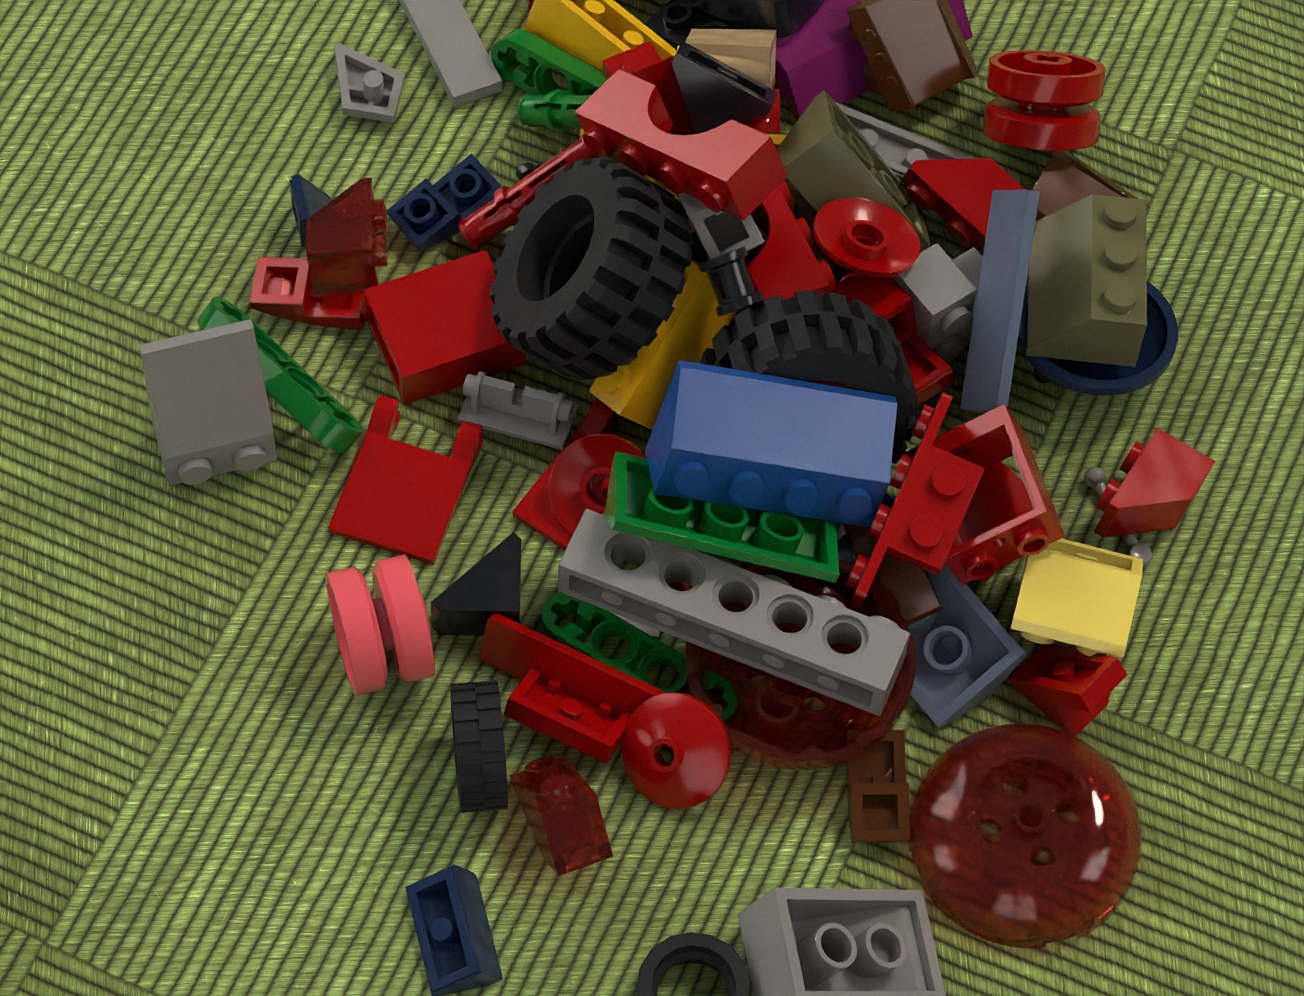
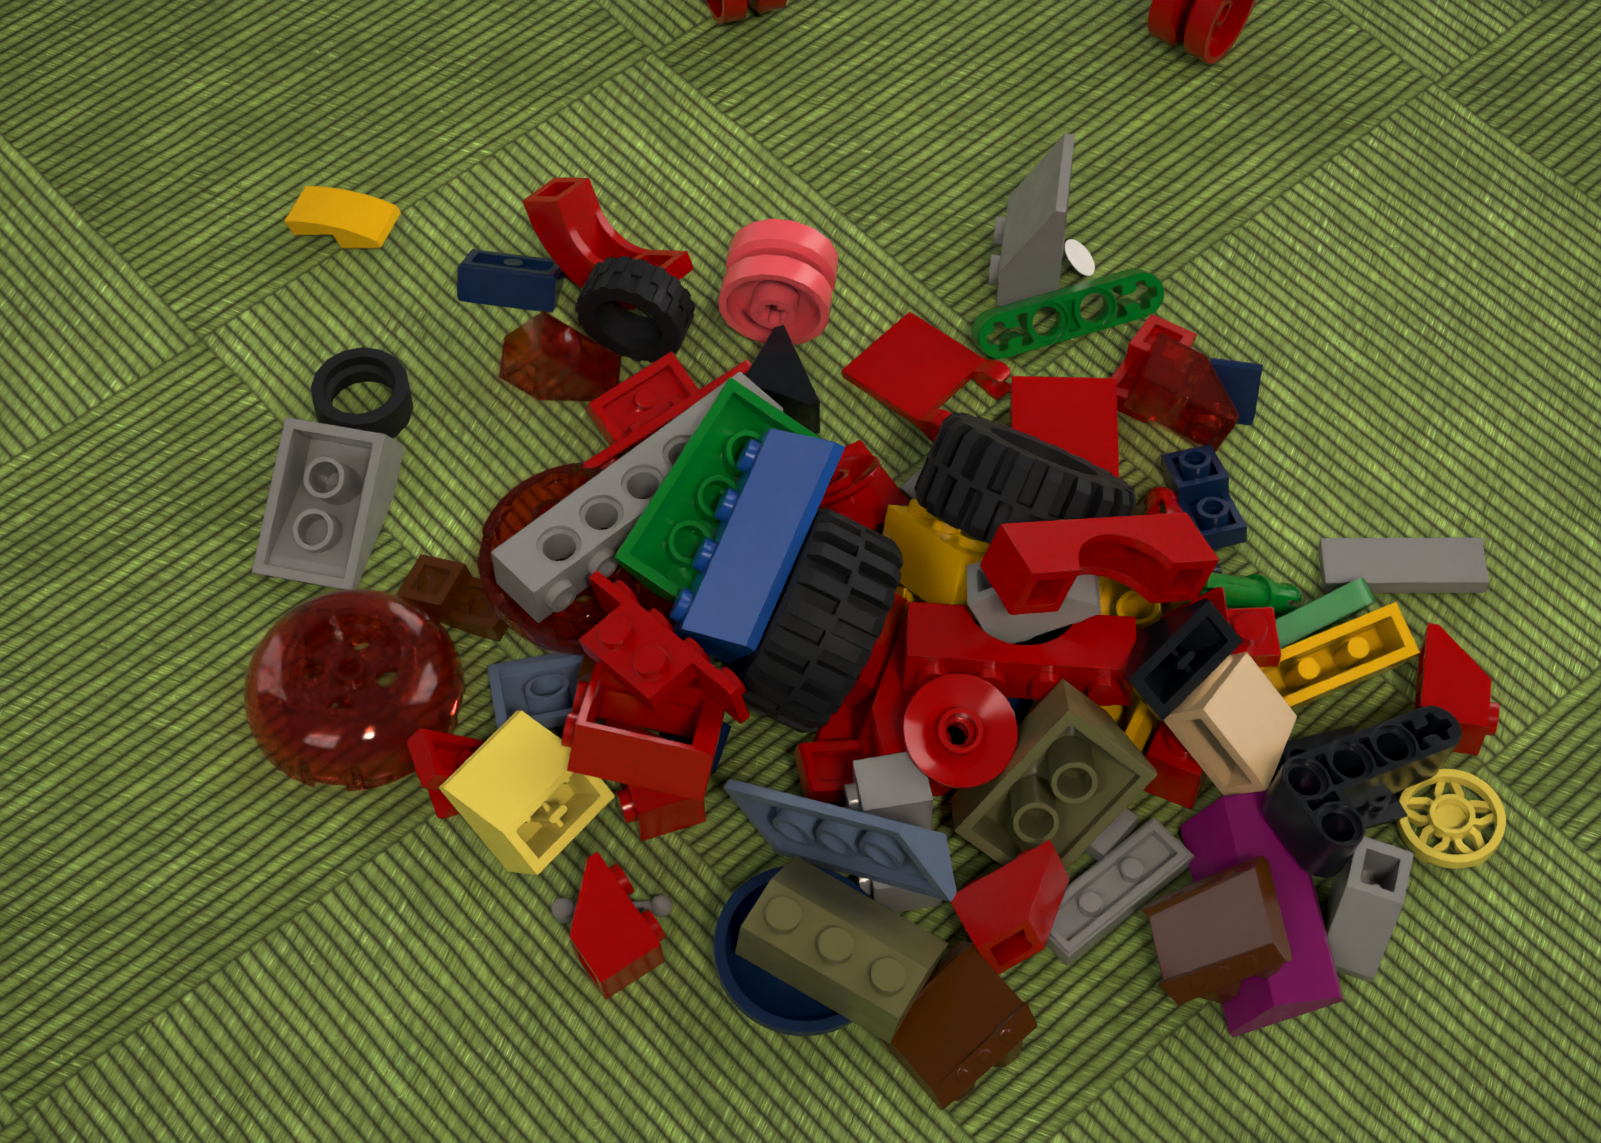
camera: 120 degrees right, 5 degrees down
(367, 86) = (1364, 480): light grey piece -> none
(403, 838) = (579, 235): none -> red arch
(698, 746) = (563, 447): red dish -> none
(731, 281) = (936, 561): black bush -> none
(1043, 100) = (1087, 1013): red wheel -> none

